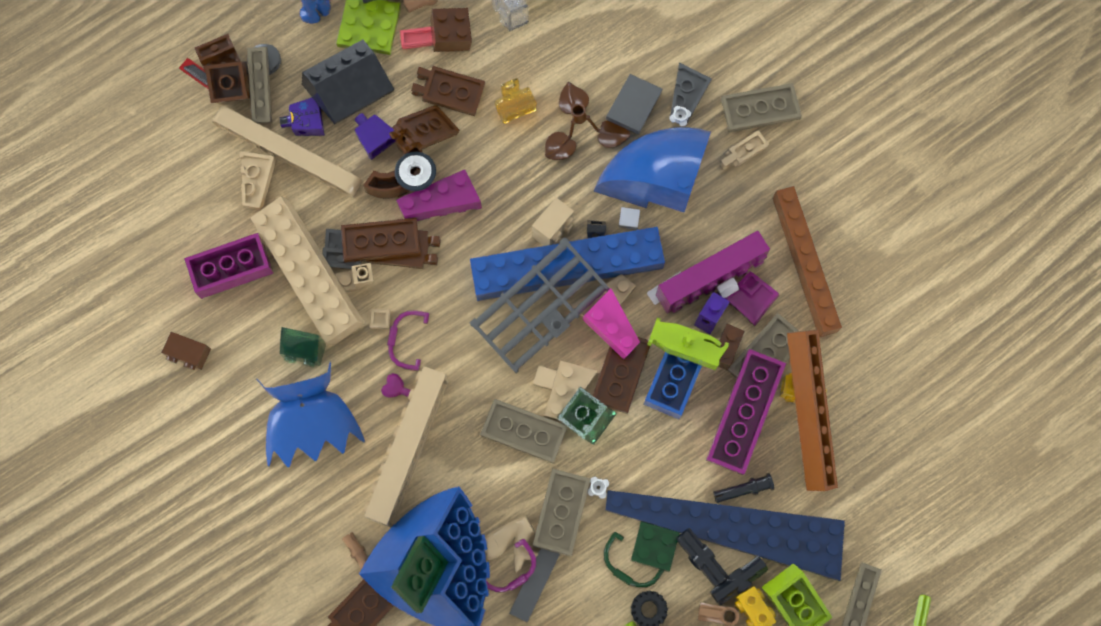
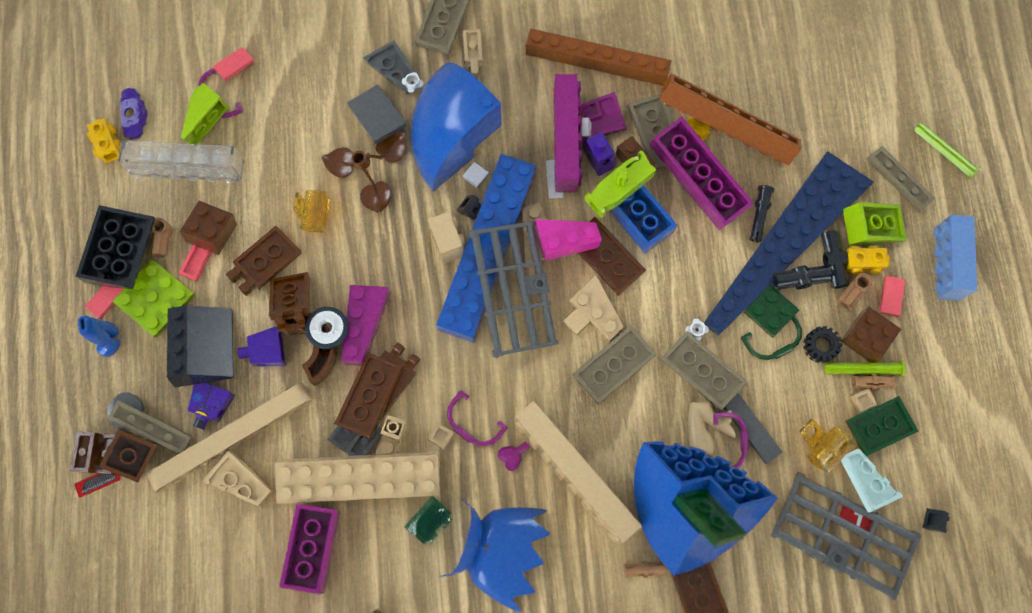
camera: 60 degrees left, 0 degrees up
(587, 415) = (631, 303): clear green slope -> none

